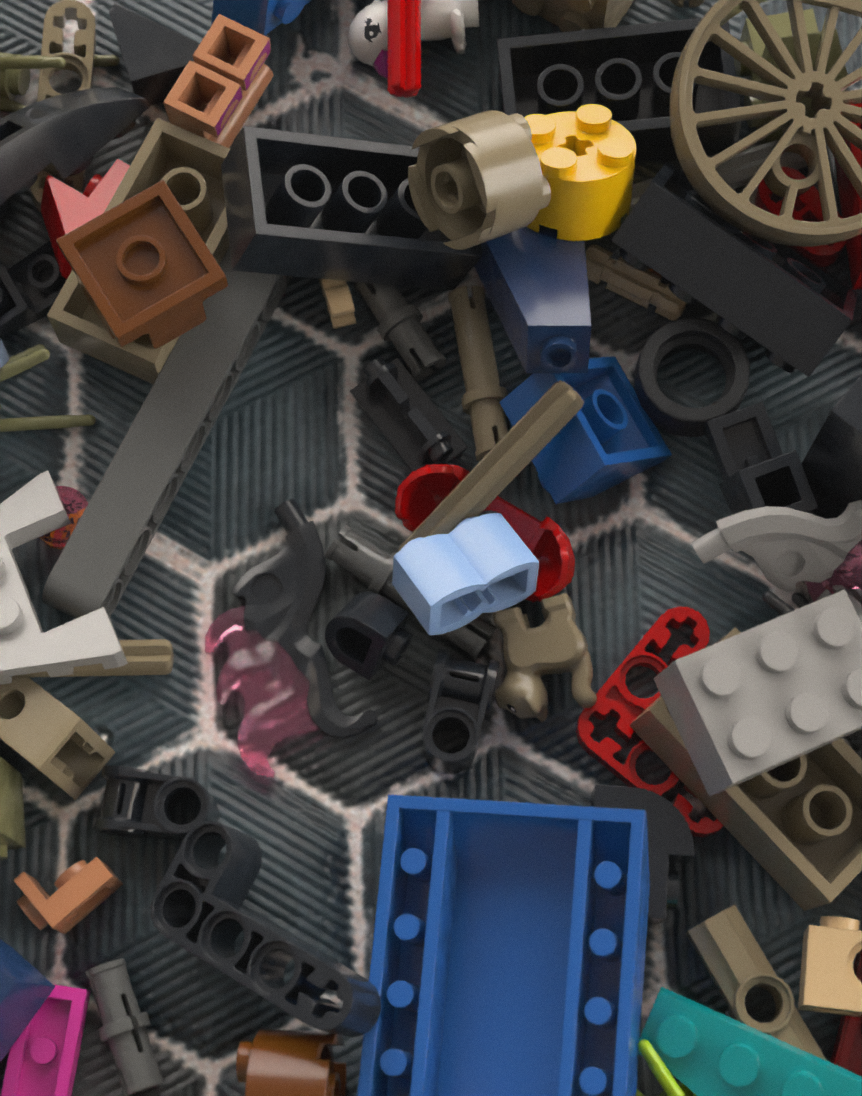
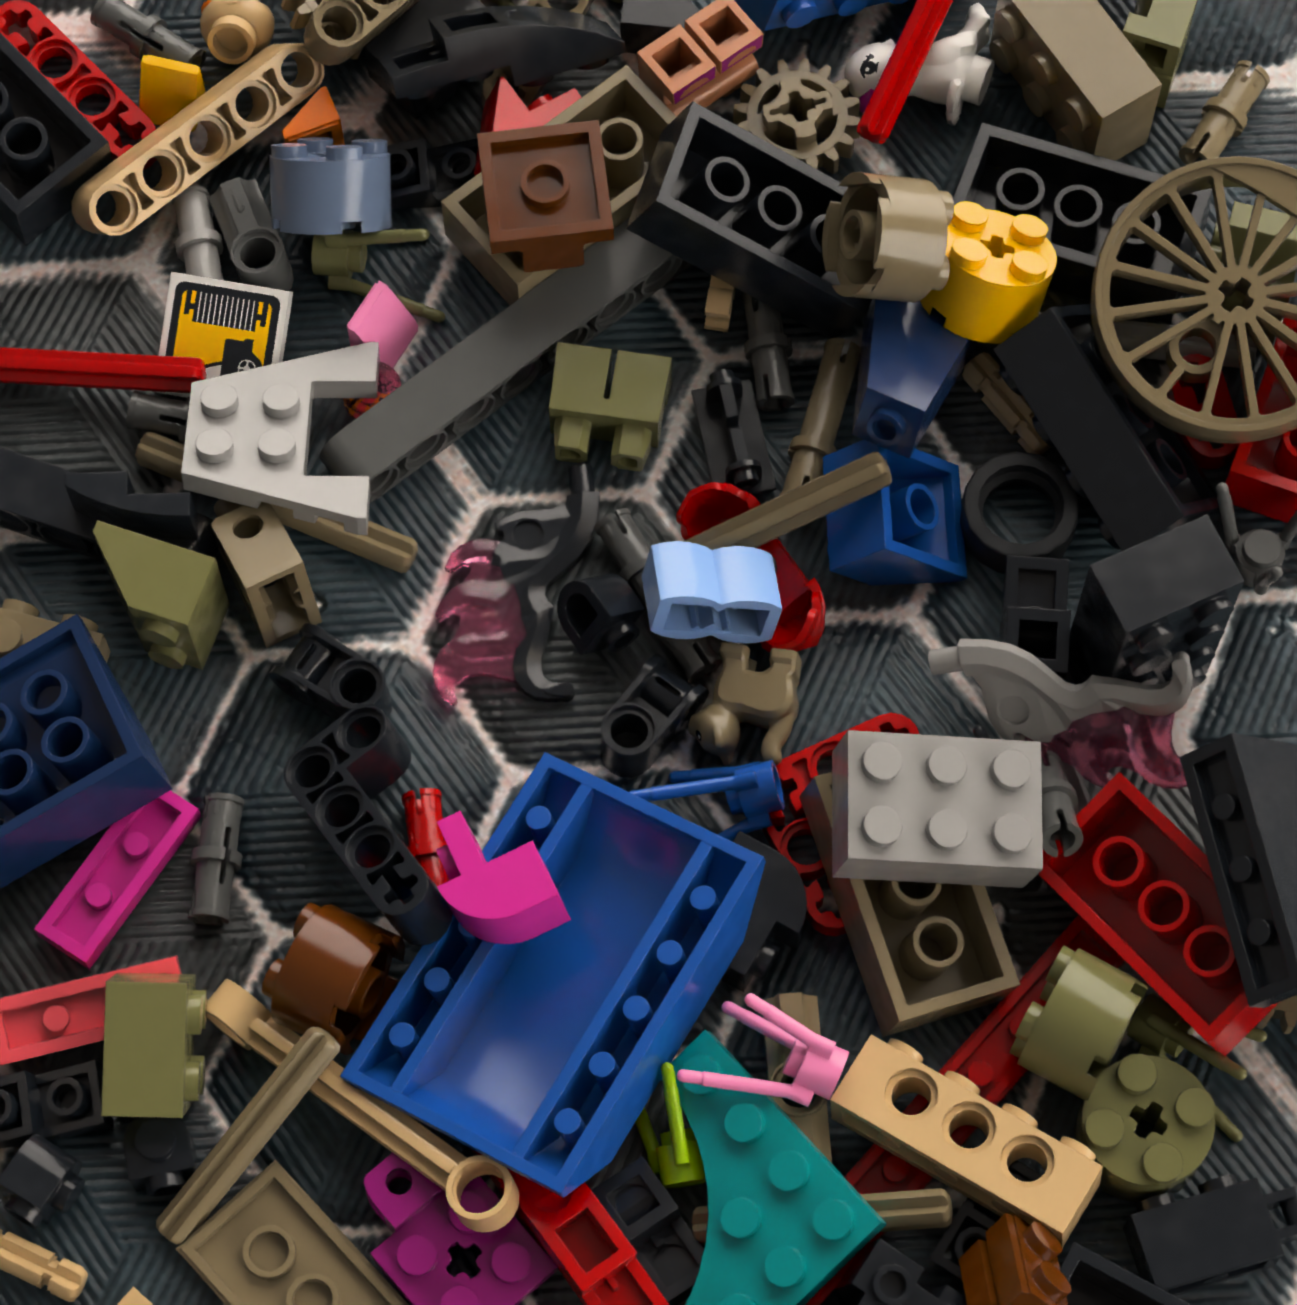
camera: 25 degrees right, 5 degrees down
(41, 449) = (385, 321): none -> bright pink slope
(78, 893) = (227, 727): nougat bracket -> none
(308, 440) = (629, 416): none -> olive hips
(314, 920) = (424, 832): none -> red pin
(329, 97) = (809, 100): none -> dark tan gear
(423, 963) = (501, 898): none -> dark pink brick
(583, 739) = (748, 789): none -> blue plant
(774, 980) = (811, 1063): none -> bright pink plant

